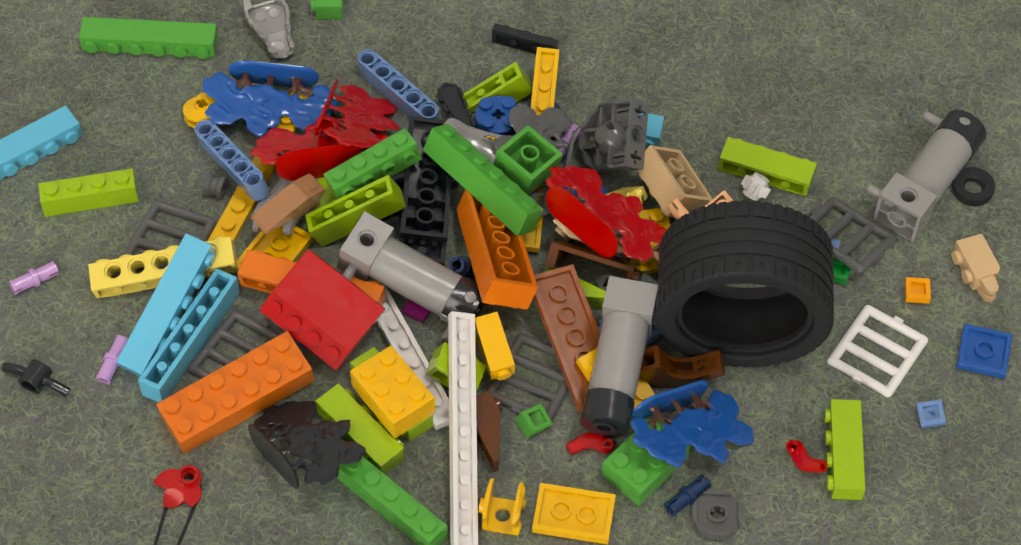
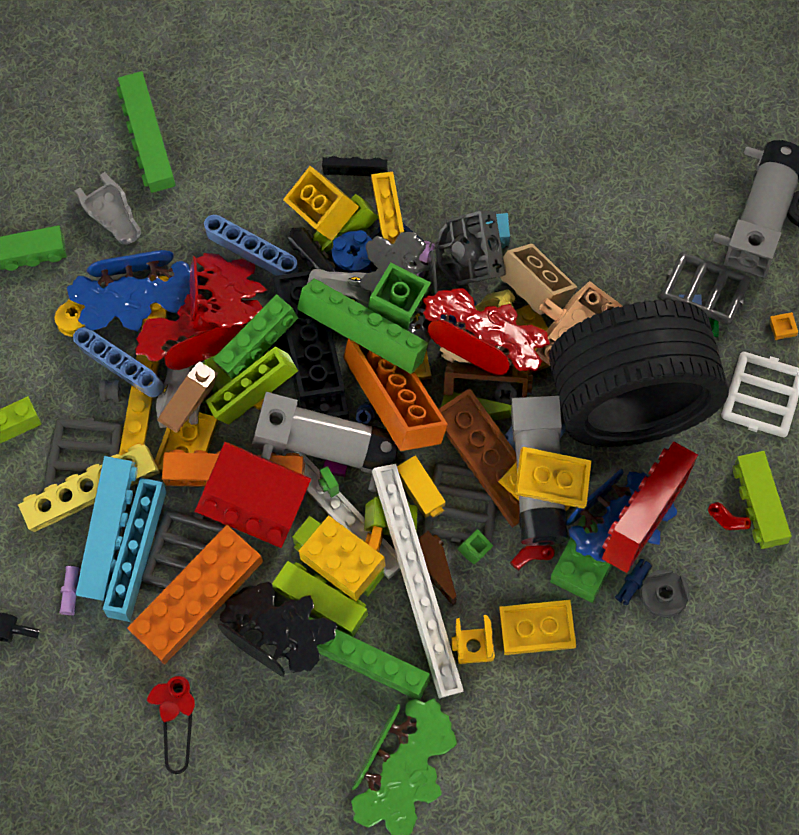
camera: 10 degrees left, 10 degrees up
(402, 320) = (327, 482): none -> bright green plate
(434, 382) = (375, 539): none -> light orange plate
(478, 62) = (321, 203): none -> yellow brick
(628, 360) = (553, 477): none -> yellow plate
(675, 372) = (608, 458): reddish brown arch -> none
(721, 419) = (648, 506): none -> red brick
(755, 186) = (610, 261): white gear -> none
(778, 167) = (615, 237): lime brick -> none

